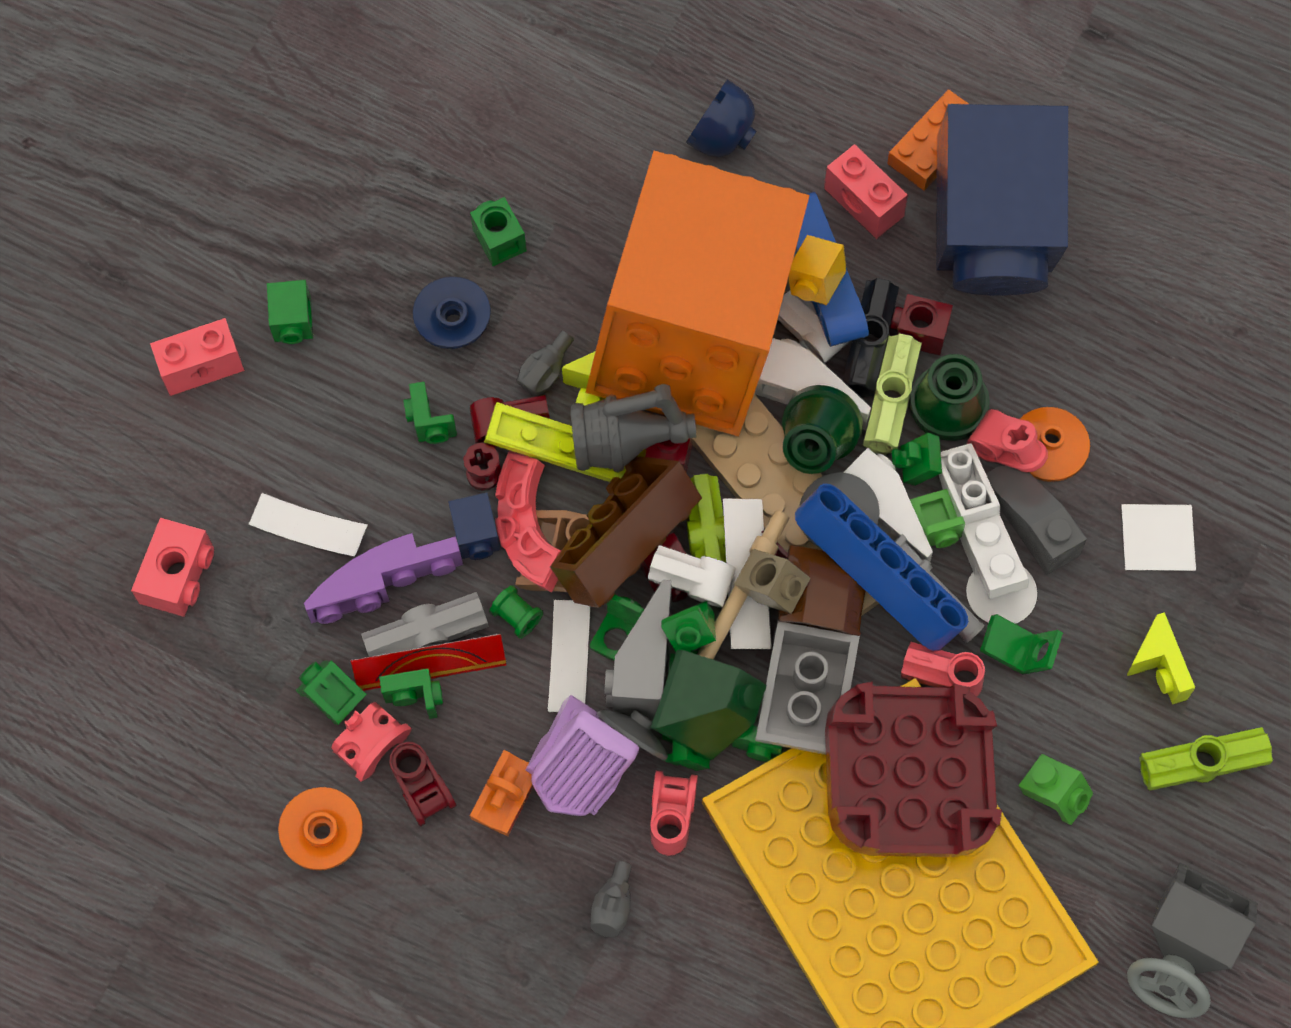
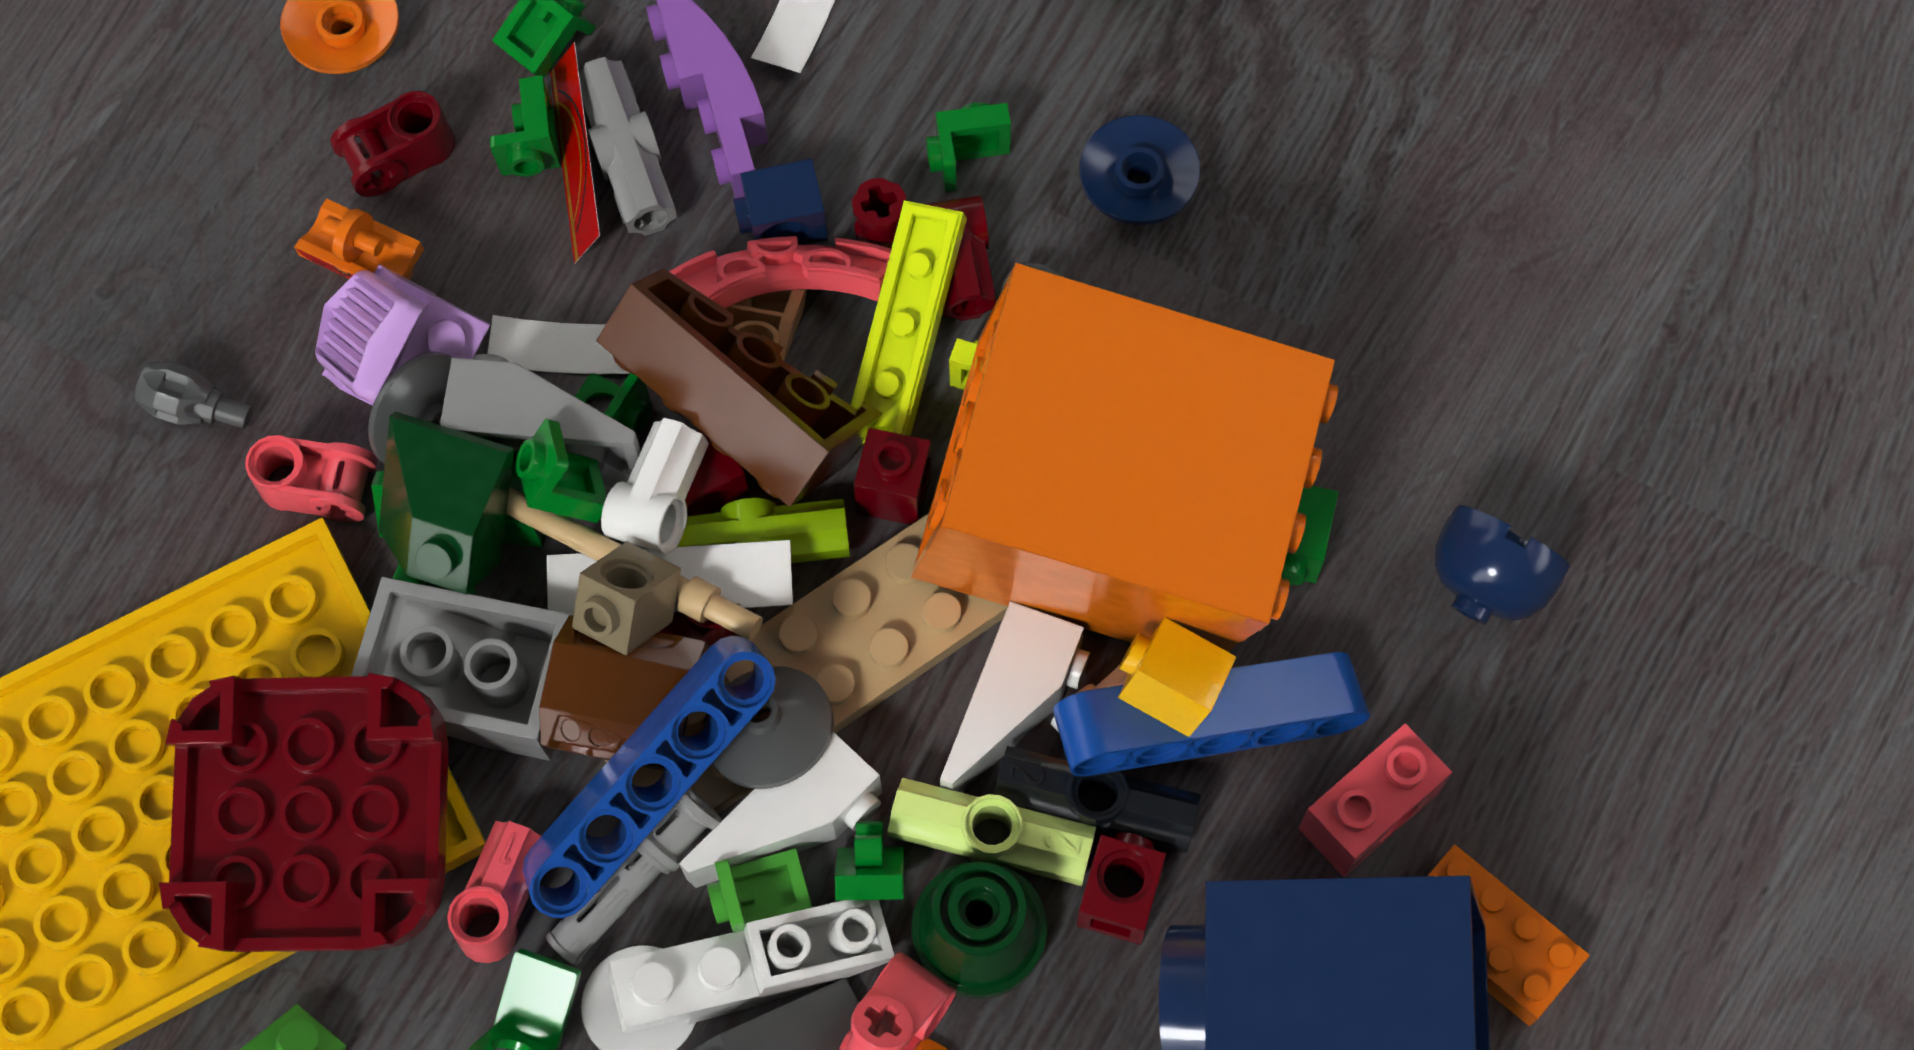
camera: 90 degrees right, 0 degrees up
(369, 739) = (471, 83): coral piece -> none
(502, 244) = (1276, 254): green brick -> none
(516, 611) = (648, 256): green bush -> none
(617, 431) = (894, 373): dark grey piece -> none
(819, 428) = (907, 694): dark green piece -> none

